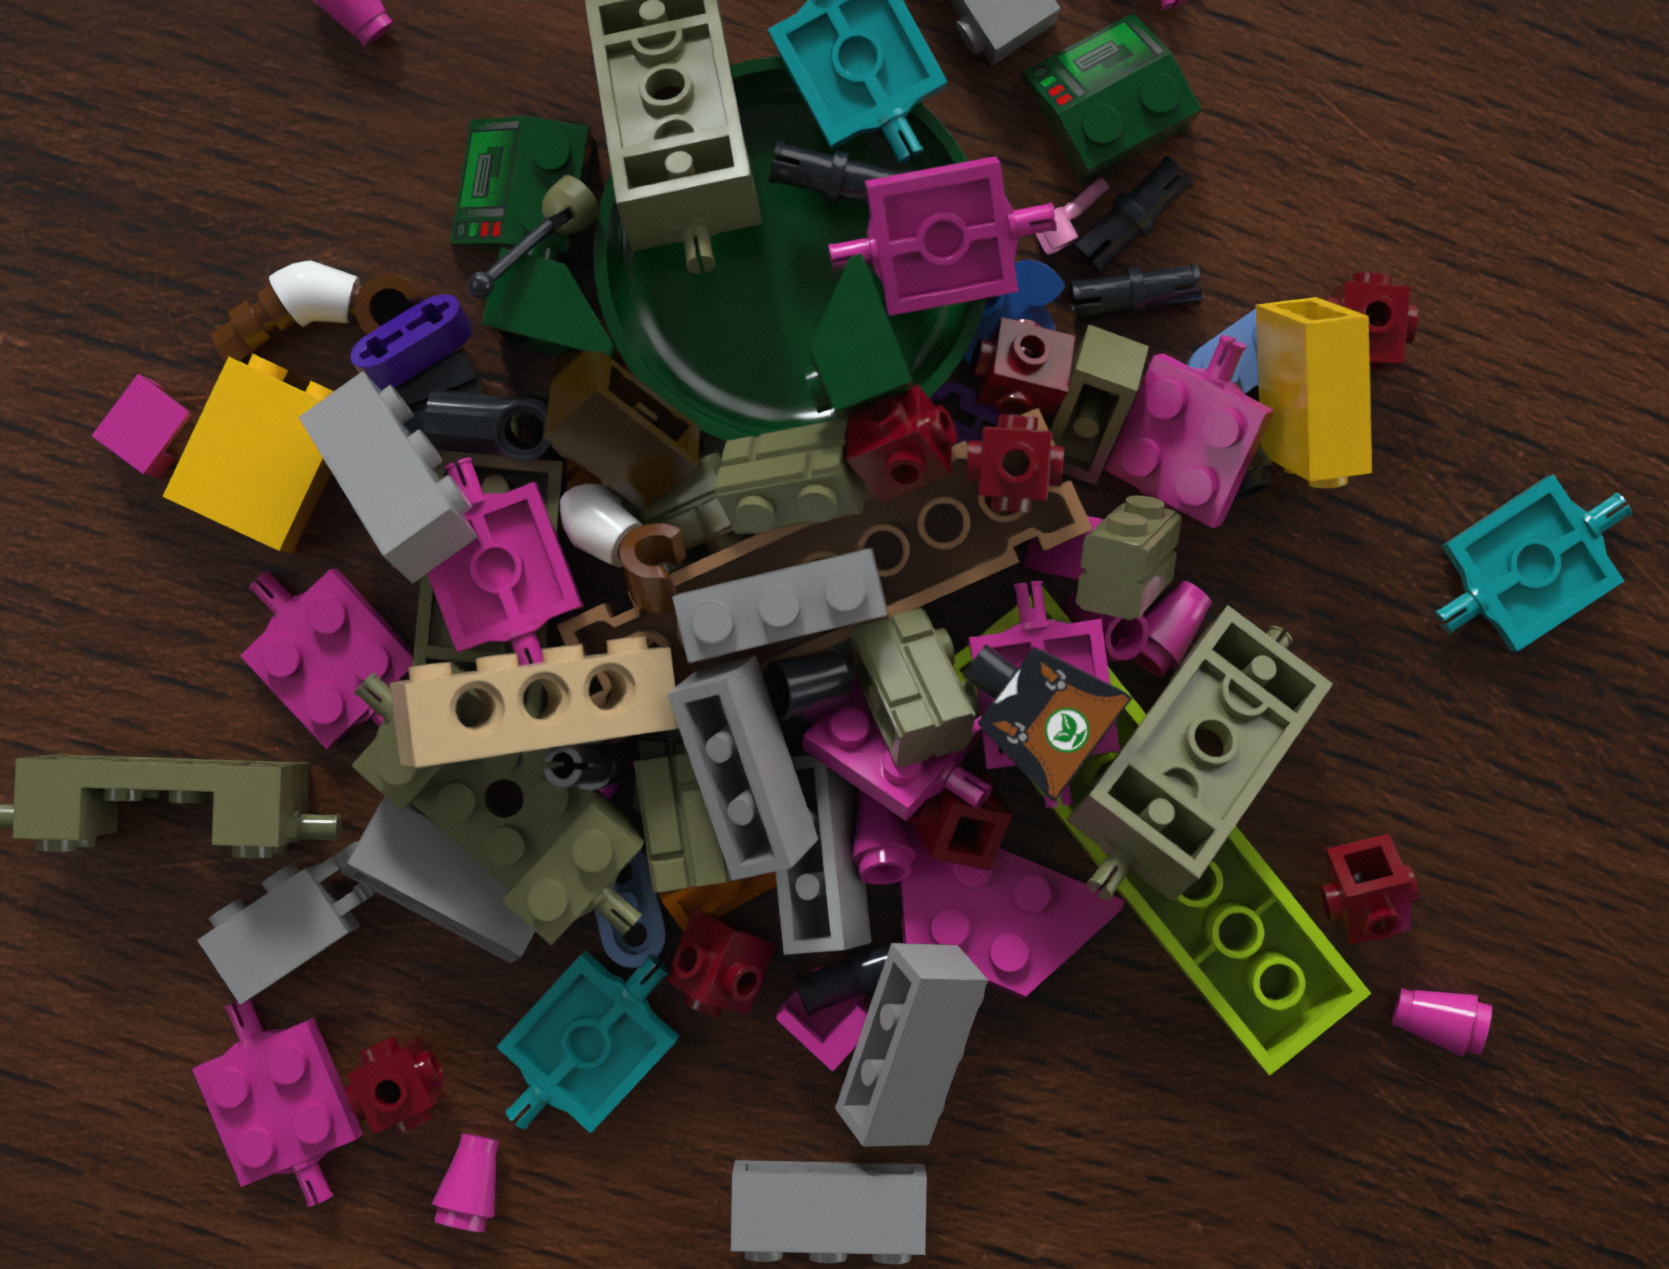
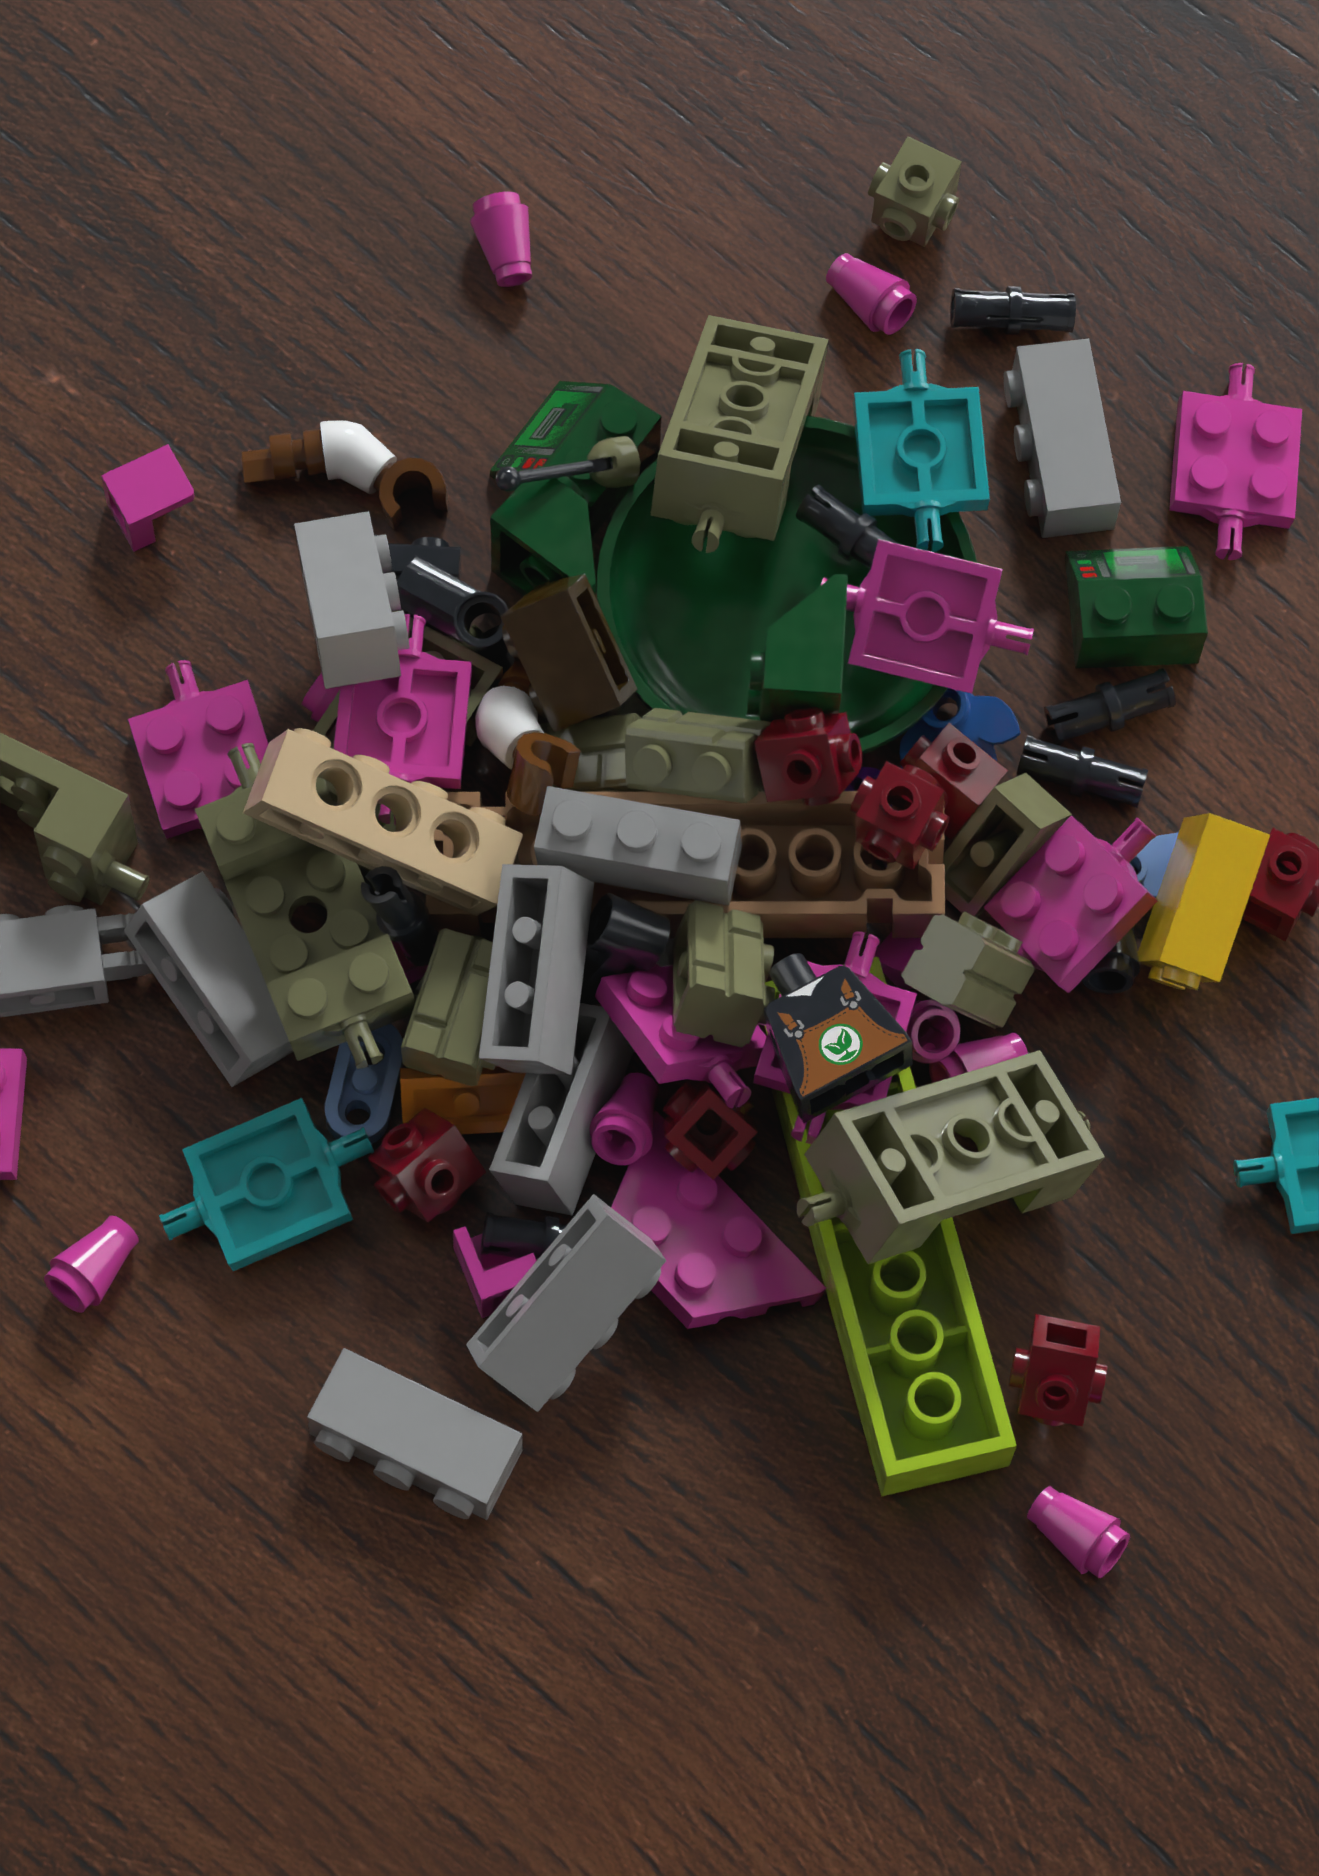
camera: 20 degrees right, 20 degrees down
(253, 457) = (229, 563): yellow brick -> none
(412, 341) = (423, 520): dark purple beam -> none
(413, 1070) = (76, 1158): dark red brick -> none
(1065, 234) = (1037, 684): bright pink hand -> none

